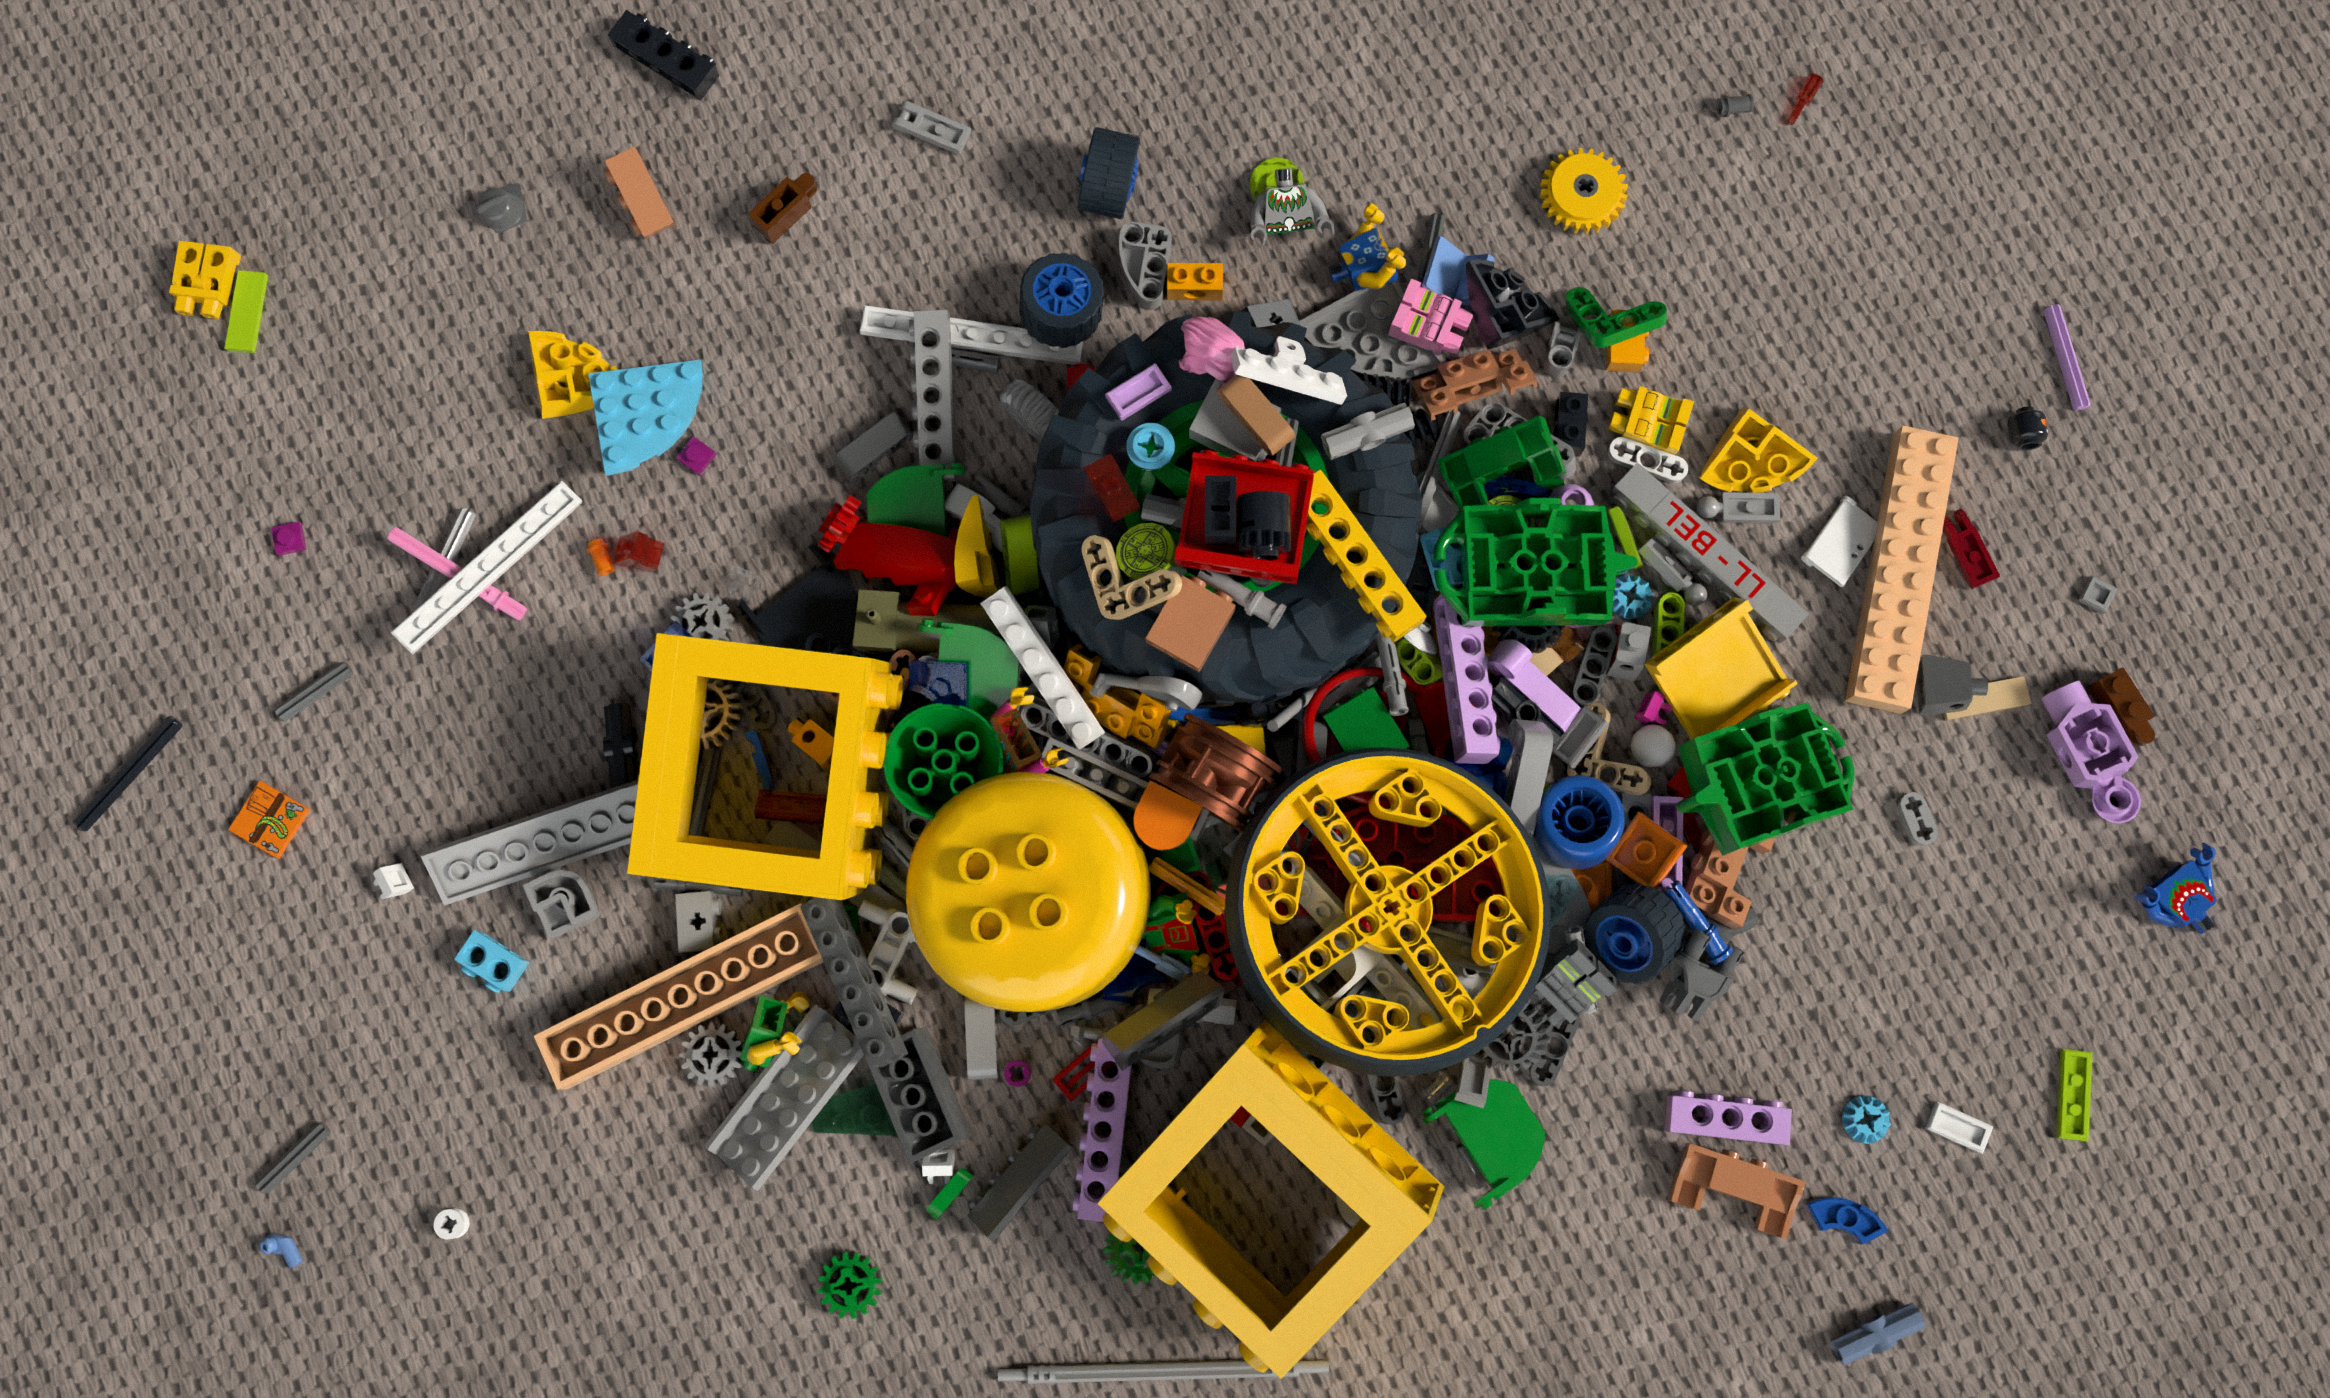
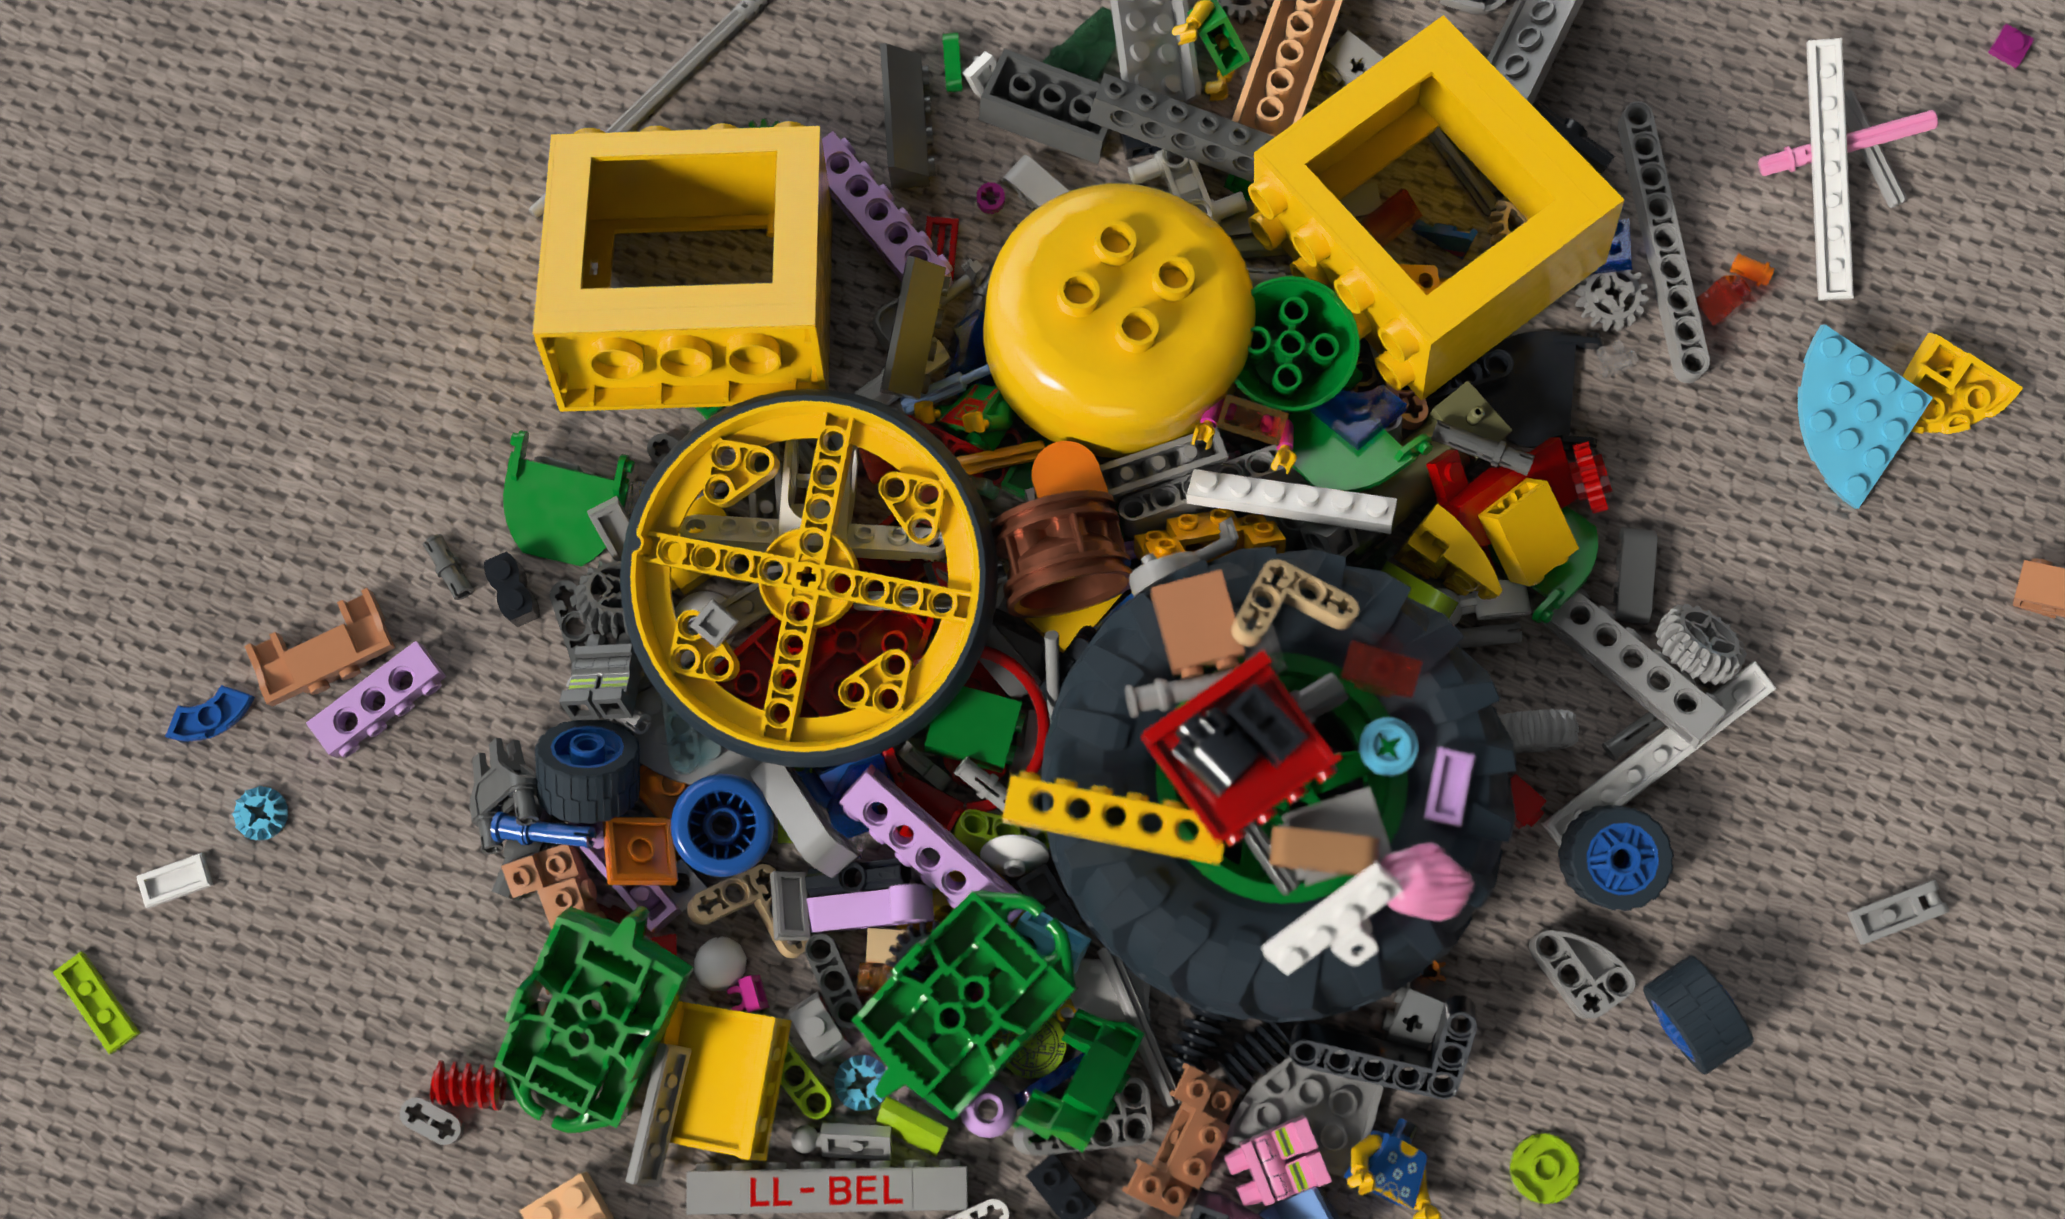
camera: 135 degrees right, 0 degrees up
(632, 640) = (1667, 228): none -> light grey beam
(696, 455) = (1770, 426): magenta plate -> none
(783, 206) = (1940, 706): reddish brown brick -> none
(882, 367) = (1700, 644): none -> light grey gear
(886, 582) = (1495, 452): none -> dark grey pin
(915, 520) = (1528, 532): none -> yellow brick
(1145, 550) = (1297, 647): lime tile -> none
(1195, 281) = (1520, 995): light orange brick -> none
(1287, 209) = (1509, 1146): light grey torso -> none
(1304, 301) = (1392, 1055): none -> black beam
(1367, 431) = (1215, 944): light grey piece -> none
(1478, 931) = (714, 623): none -> light grey tile
(1573, 1117) = (510, 582): none -> black brick
(1603, 1167) = (448, 567): none -> dark grey pin
(1774, 686) = (658, 1115): none -> light grey tile
(1877, 816) = (468, 1086): none -> red piece
(1878, 1333) = (105, 644): sand blue piece -> none

